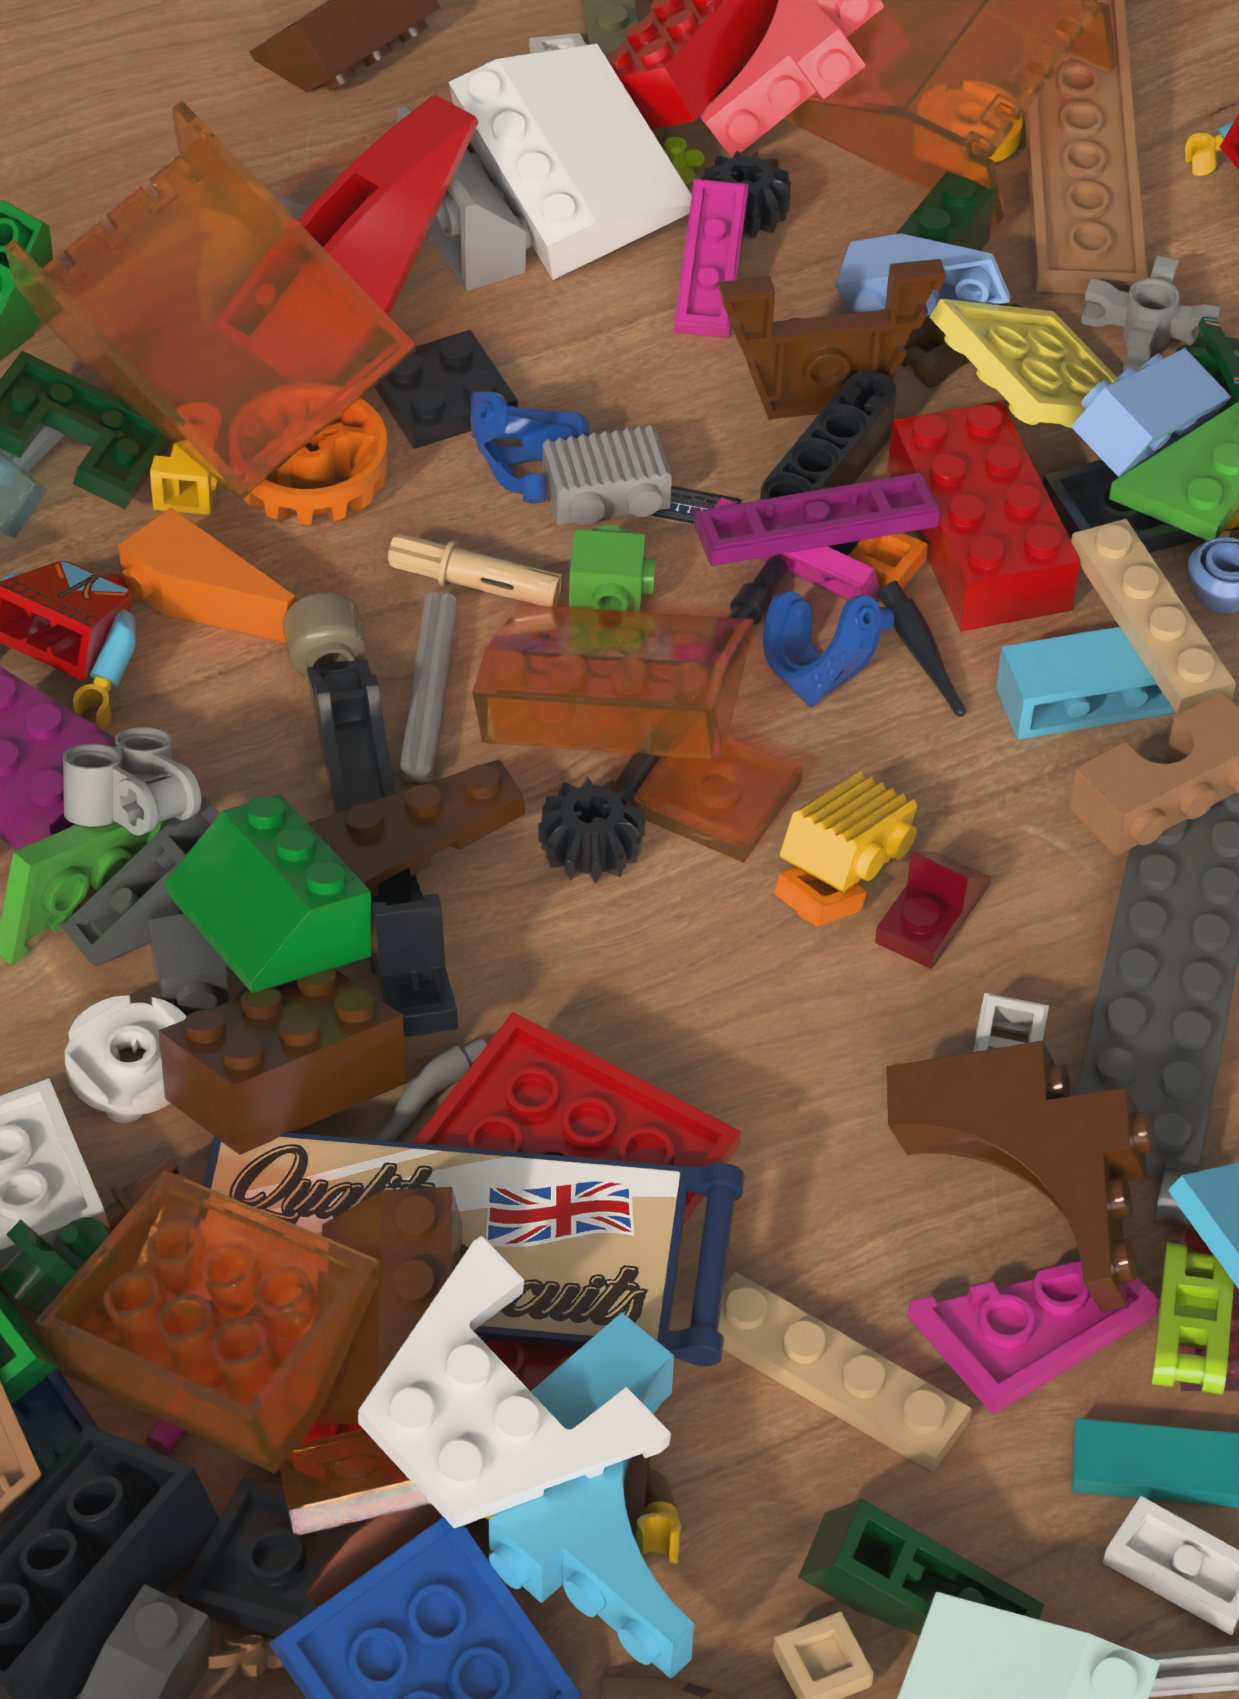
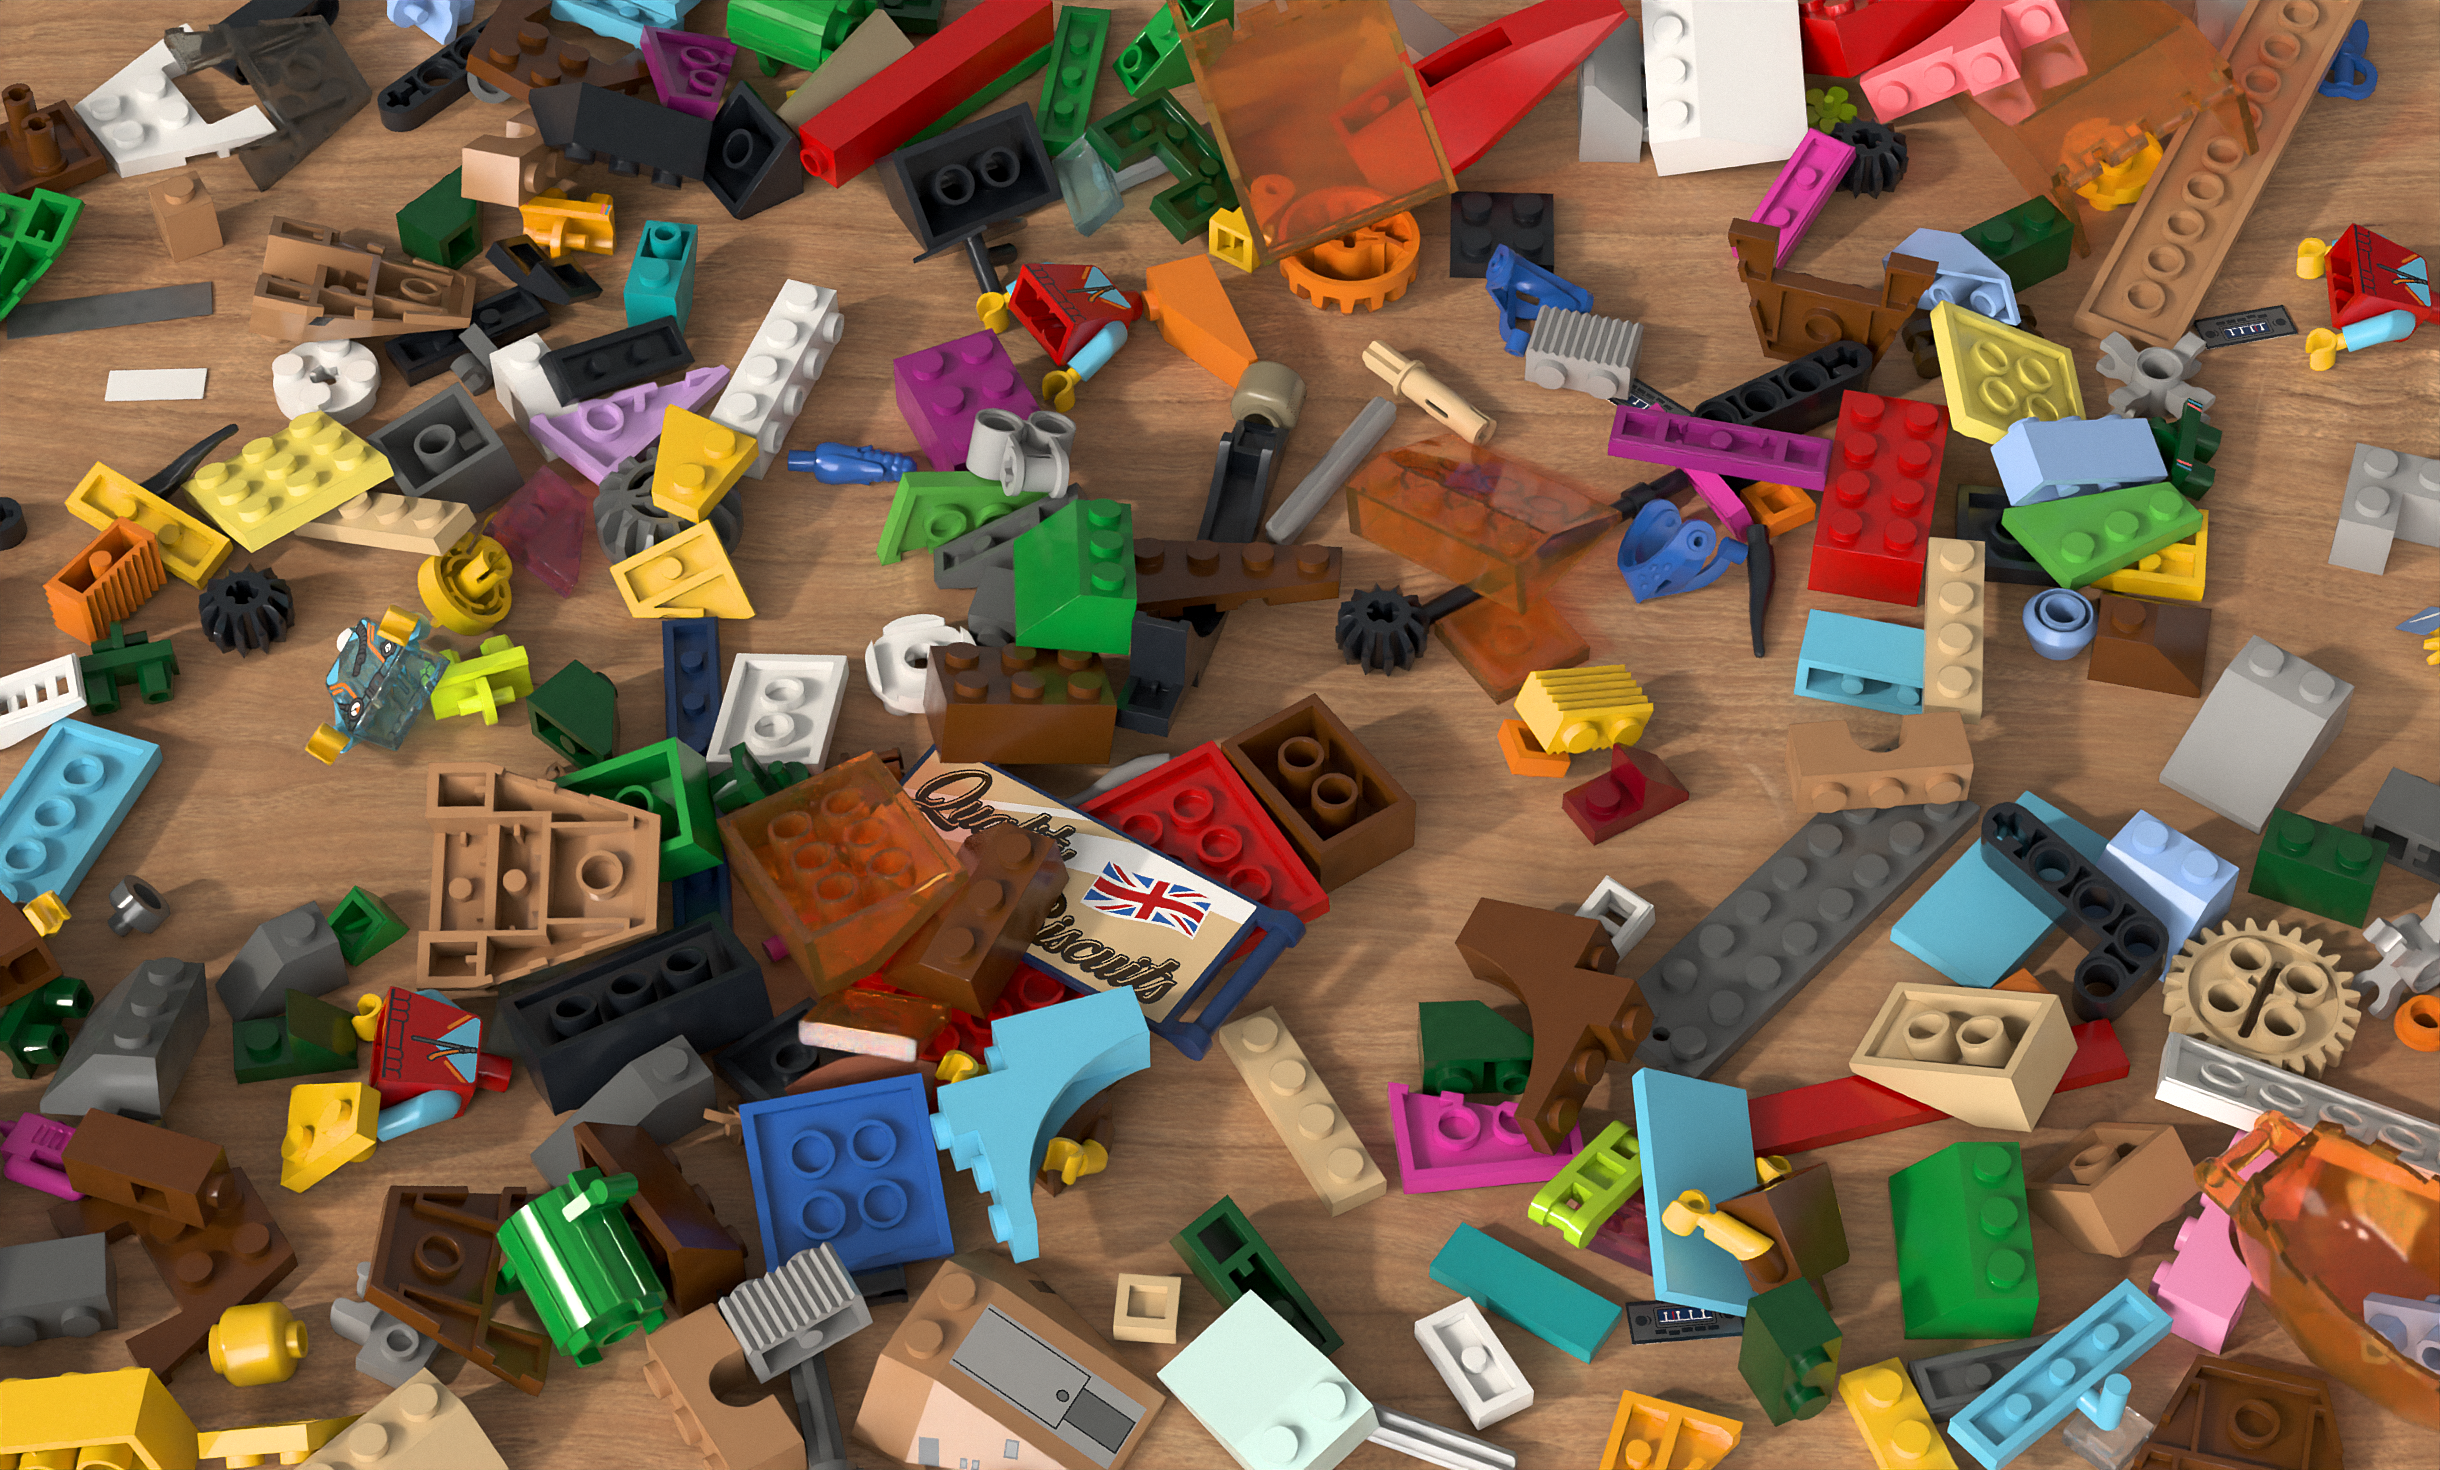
camera: 30 degrees right, 0 degrees up
(470, 1425) = (958, 1009): white wing -> none
(610, 568) = (1534, 429): bright green brick -> none
(654, 1015) = (1324, 791): none -> reddish brown brick
(969, 1230) = (1471, 1050): none -> dark green slope
(1185, 235) = (2245, 327): none -> sticker

